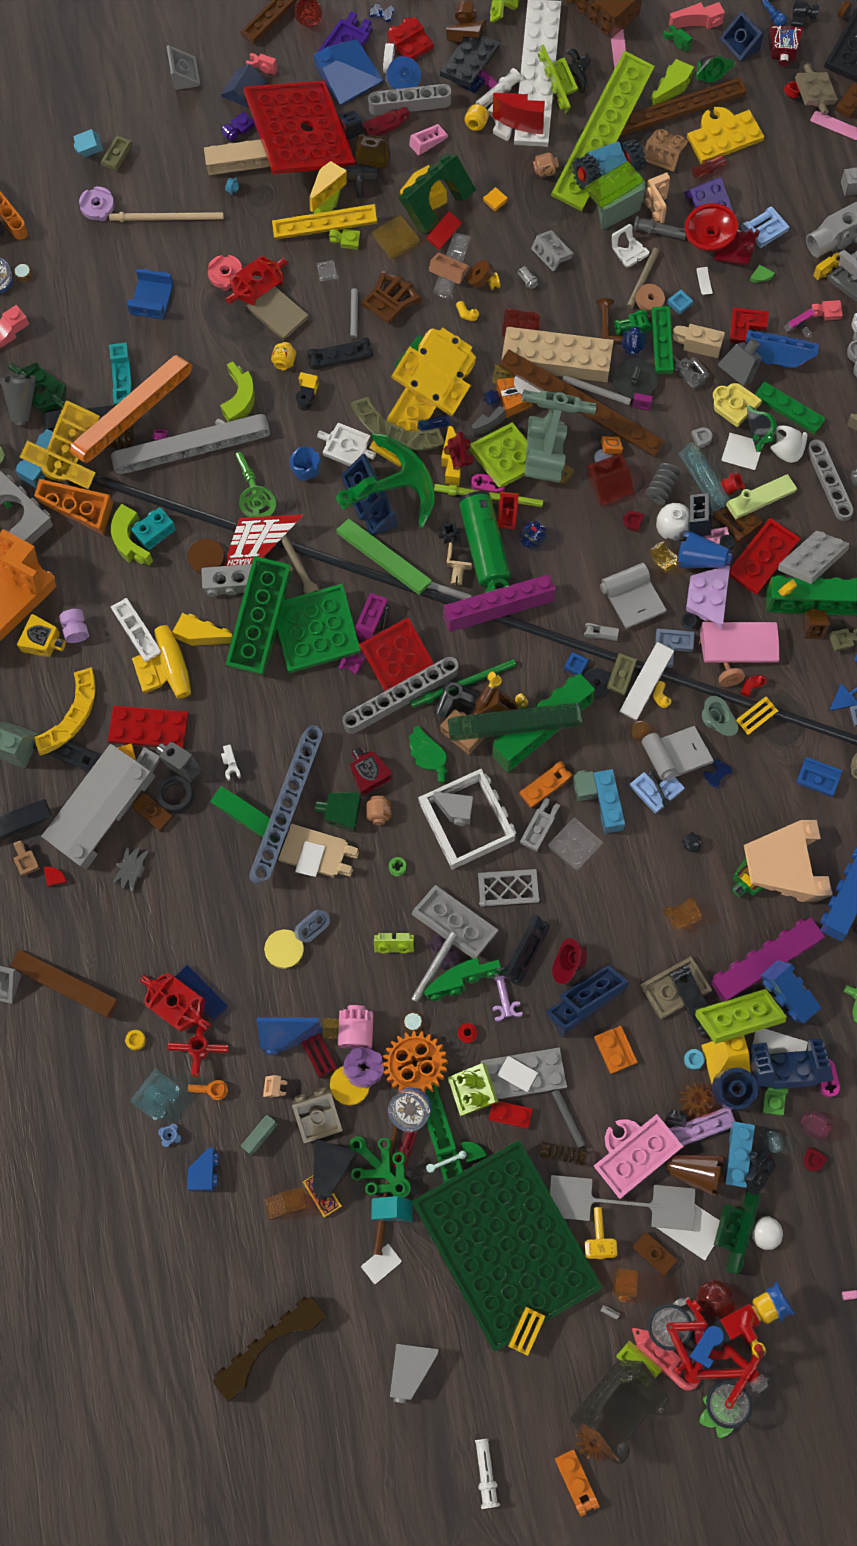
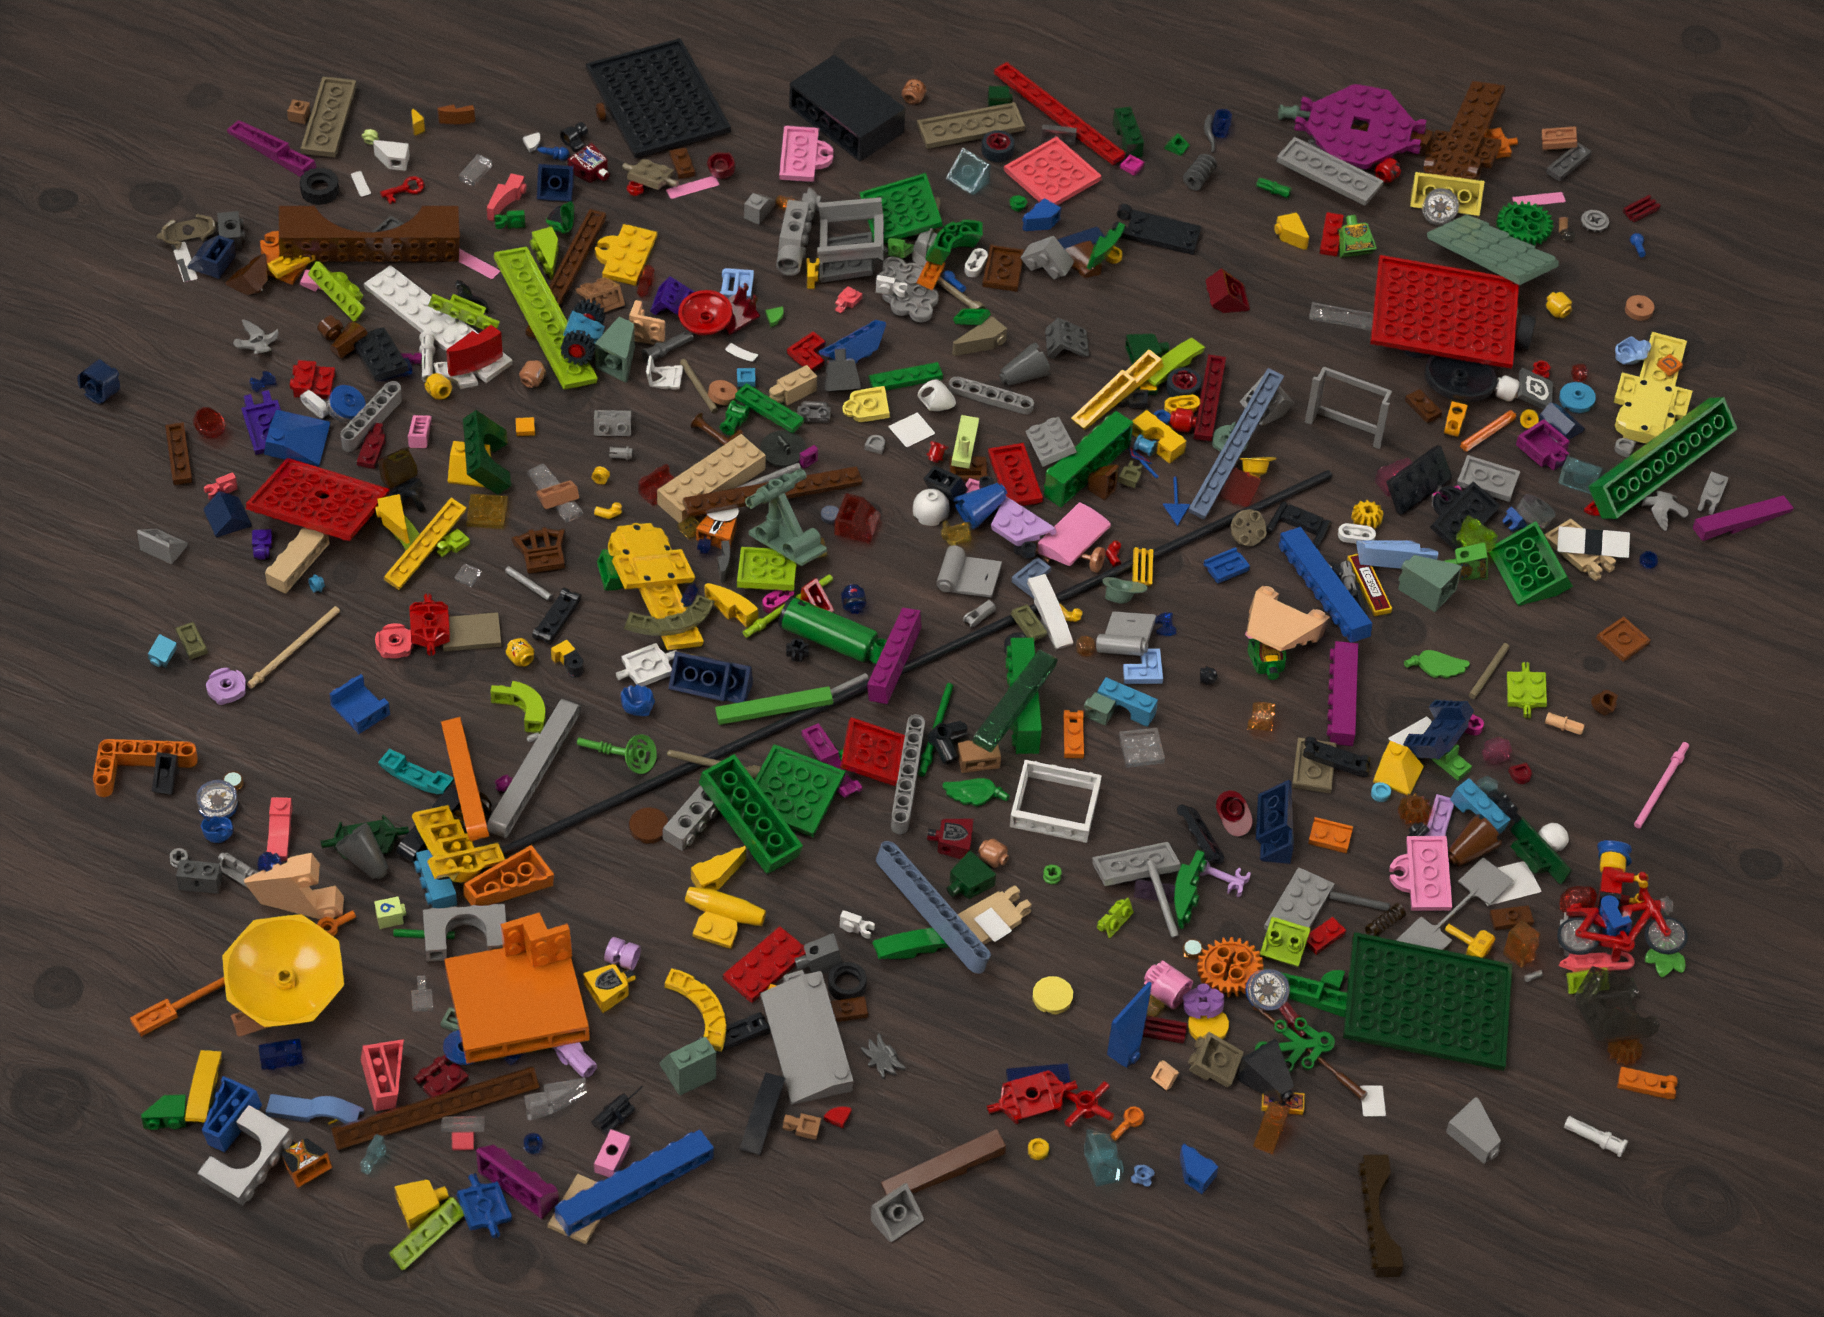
camera: 60 degrees left, 20 degrees down
(121, 532) = (576, 870): lime arch -> none
(136, 629) = (670, 914): white slope -> none
(153, 529) = (587, 842): teal brick -> none
(257, 537) = (672, 775): sticker -> none
(259, 1135) = (1197, 1112): sand green slope -> none
(312, 927) = (1052, 960): sand blue plate -> none
(352, 124) = (351, 465): black slope -> none
(391, 1209) = (1335, 1059): teal slope -> none
(412, 475) = (722, 640): green piece -> none
(430, 1168) = (1325, 1011): light aqua hinge -> none
(444, 230) = (520, 475): red slope -> none
(455, 807) = (1044, 794): light grey slope -> none
(457, 449) = (737, 590): dark red hips -> none
(458, 567) = (831, 664): tan bracket -> none
(467, 1039) = (1233, 923): red plate -> none
(480, 274) = (593, 478): reddish brown piece -> none
(495, 700) = (978, 708): reddish brown torso -> none
(506, 874) = (1149, 799): light grey window -> none
(517, 1074) = (1297, 905): white sticker -> none
(534, 1314) = (1510, 1030): yellow tile -> none
(539, 826) = (1105, 759): light grey hinge -> none
(576, 664) = (990, 648): blue tile -> none
(611, 445) = (826, 500): orange tile -> none
(614, 184) = (611, 337): clear neon green piece -> none
(632, 520) = (903, 533): dark red tile -> none
(633, 340) = (751, 424): clear blue head -> none
(662, 482) = (893, 491): dark grey piece -> none
(665, 802) = (1161, 666): black hinge -> none
(704, 476) = (908, 462): clear light blue plate -> none
(737, 1077) = (1428, 775): dark blue brick -> none
(740, 1016) = (1375, 733): lime plate -> none
(761, 426) = (909, 398): hat -> none
(787, 588) = (1067, 466): yellow tile -> none
(790, 991) = (1381, 689): blue wedge -> none
(800, 321) = (840, 321): piece -> none

